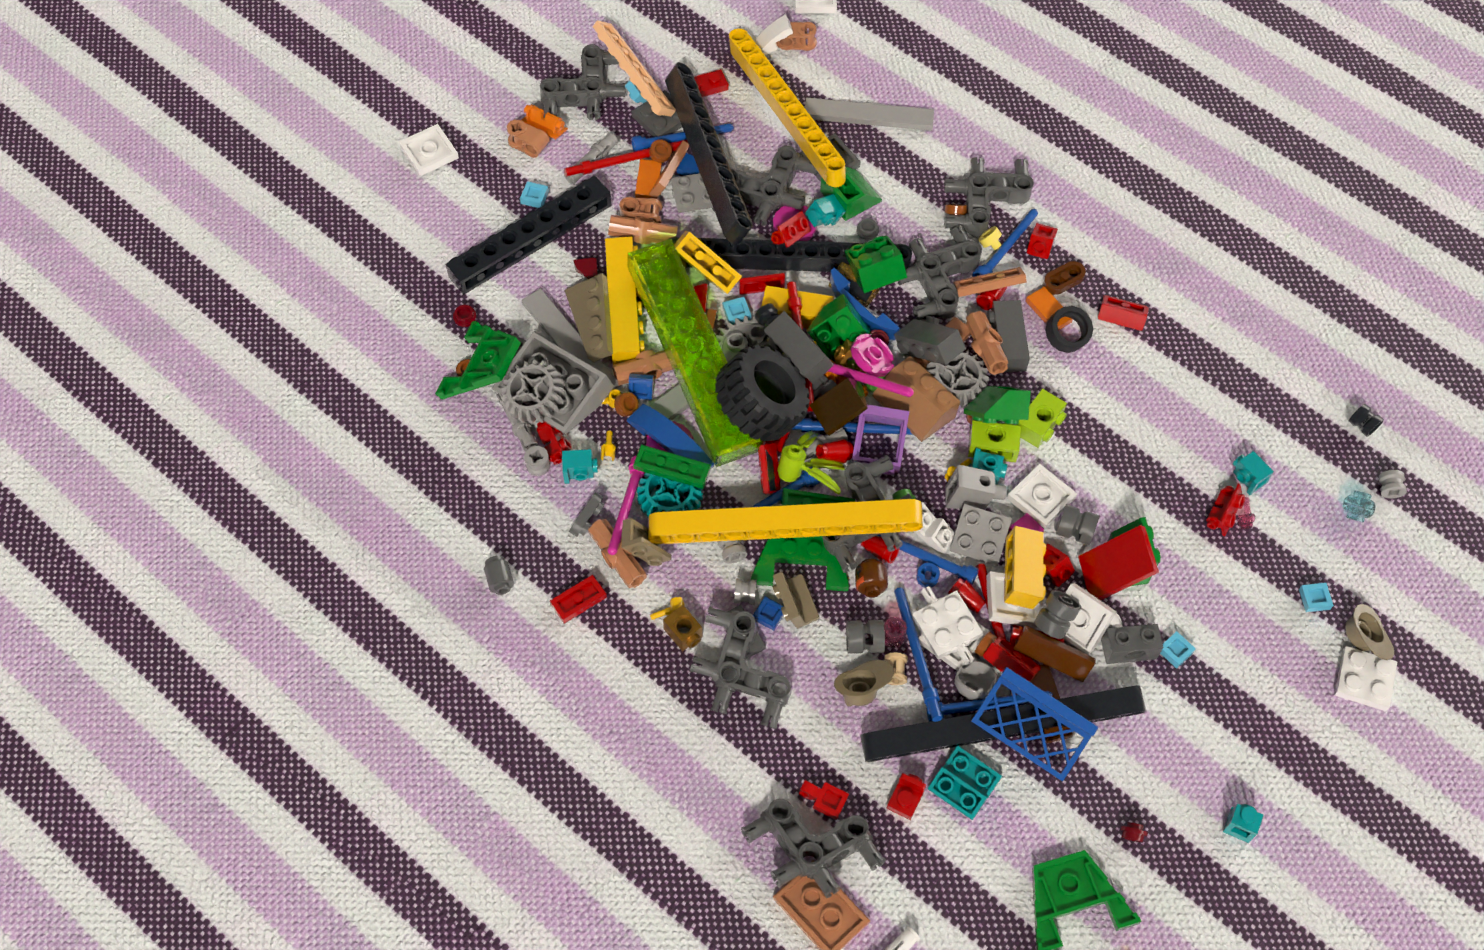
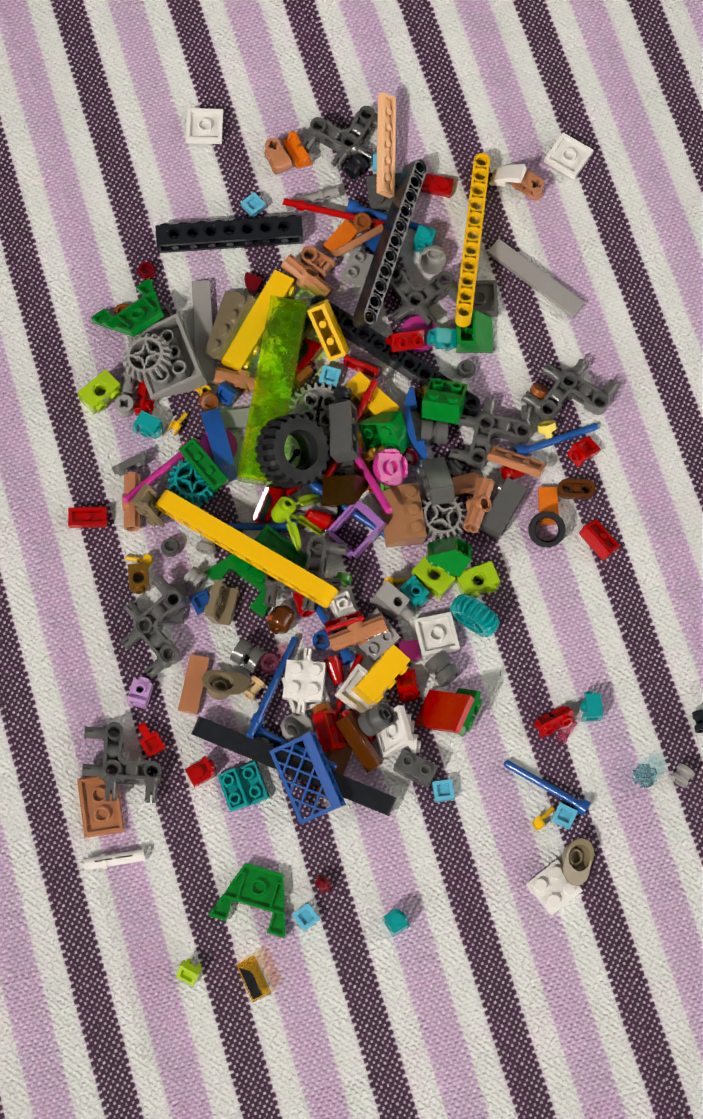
camera: 30 degrees right, 10 degrees up
(498, 575) = (48, 470): dark grey brick -> none
(500, 448) = (102, 382): none -> lime brick
(614, 107) = (356, 165): none -> black wheel
(693, 576) = (170, 547): none -> dark grey plate
(735, 135) = (423, 238): none -> teal brick
(757, 147) = (432, 259): none -> light grey hair
(775, 760) = (140, 699): none -> lavender brick
(826, 706) = (193, 684): none -> nougat tile
(886, 300) = (434, 431): none -> dark grey wheel
(943, 538) = (341, 623): none -> red slope
(967, 539) = (358, 633): none -> nougat piece
(1069, 450) = (474, 615): none -> teal gear
(1144, 883) = (305, 917): none -> medium azure plate
(1295, 621) = (539, 822): none -> yellow hand
(1322, 575) = (580, 805): none -> blue piece

